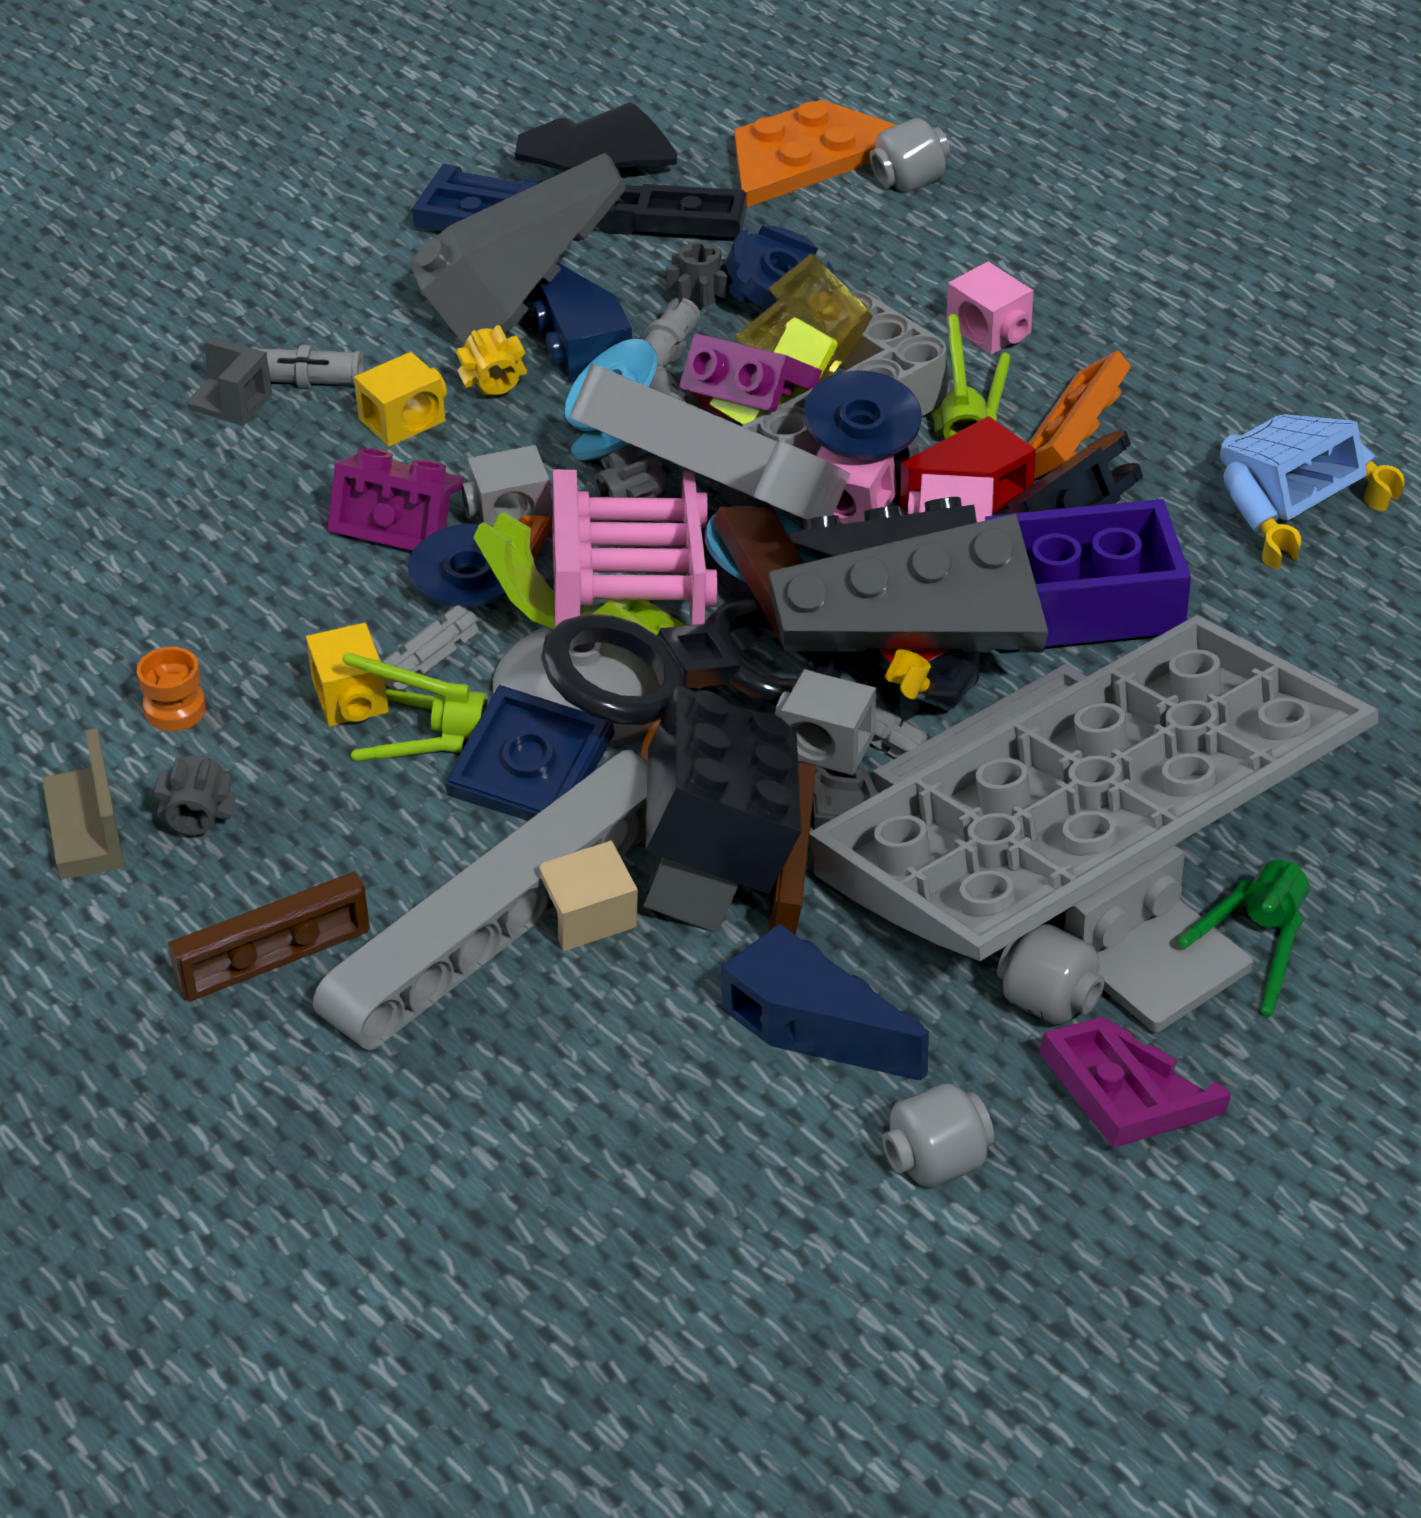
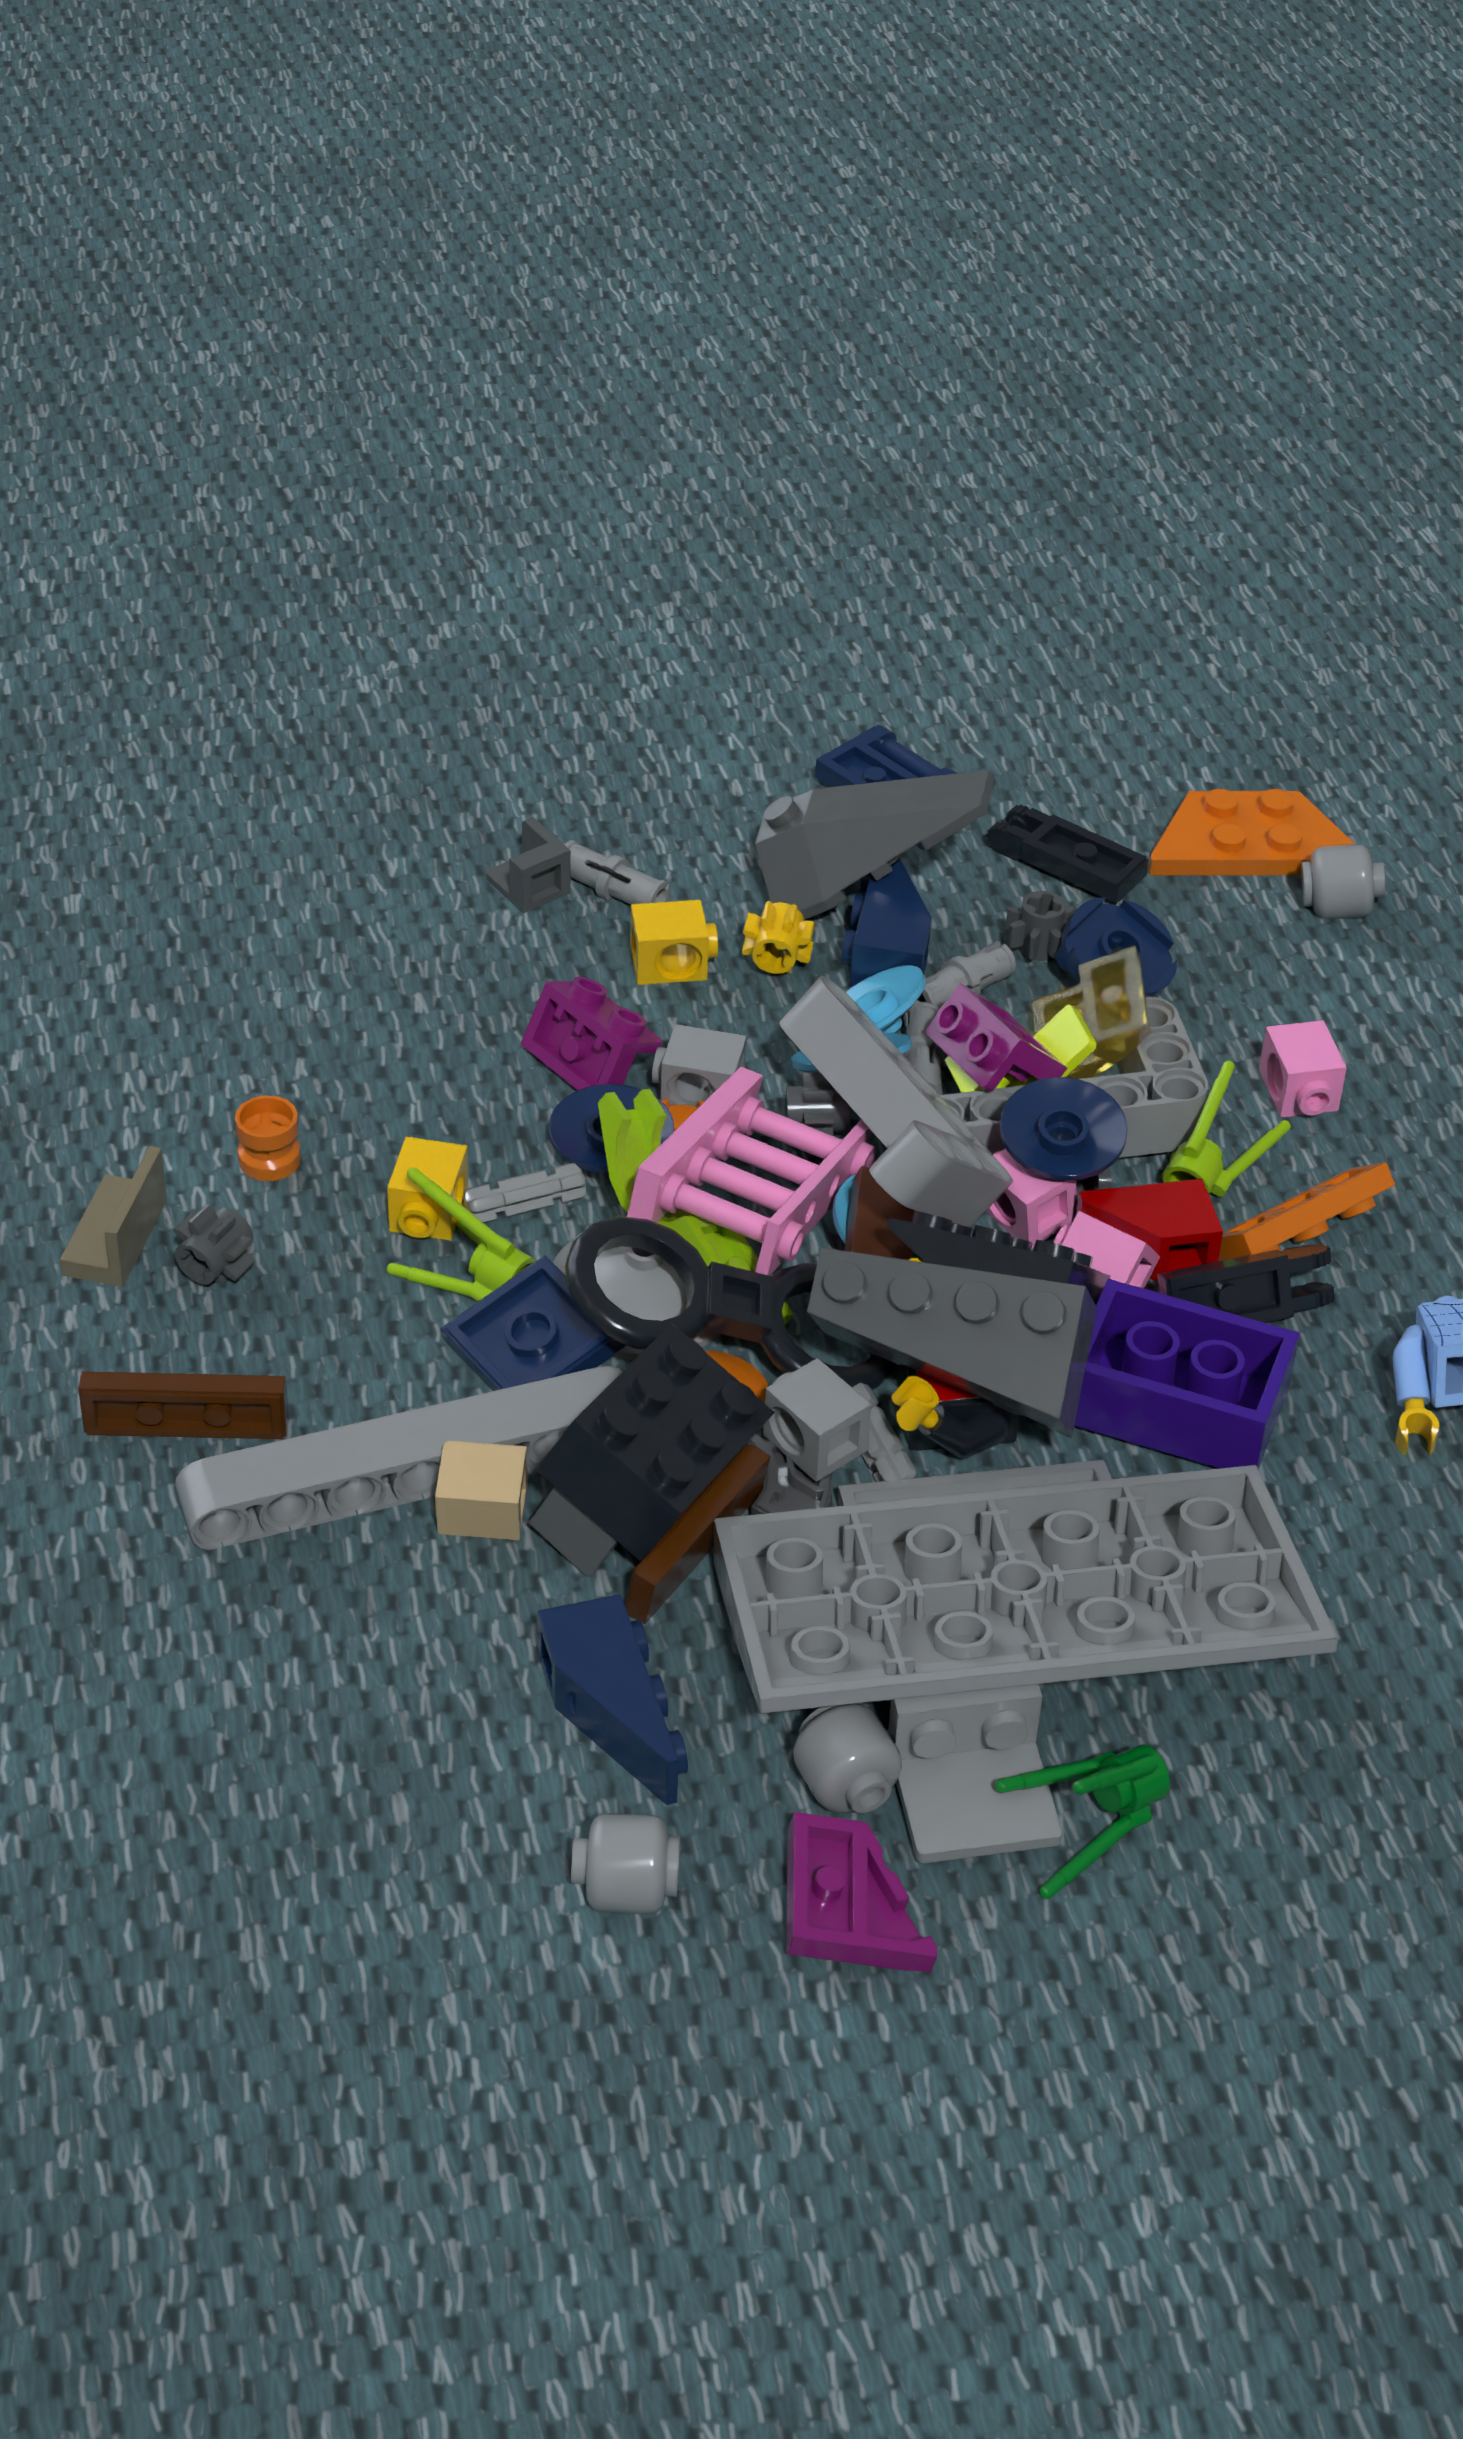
camera: 25 degrees right, 0 degrees up
(621, 133) = (1047, 759): black panel -> none

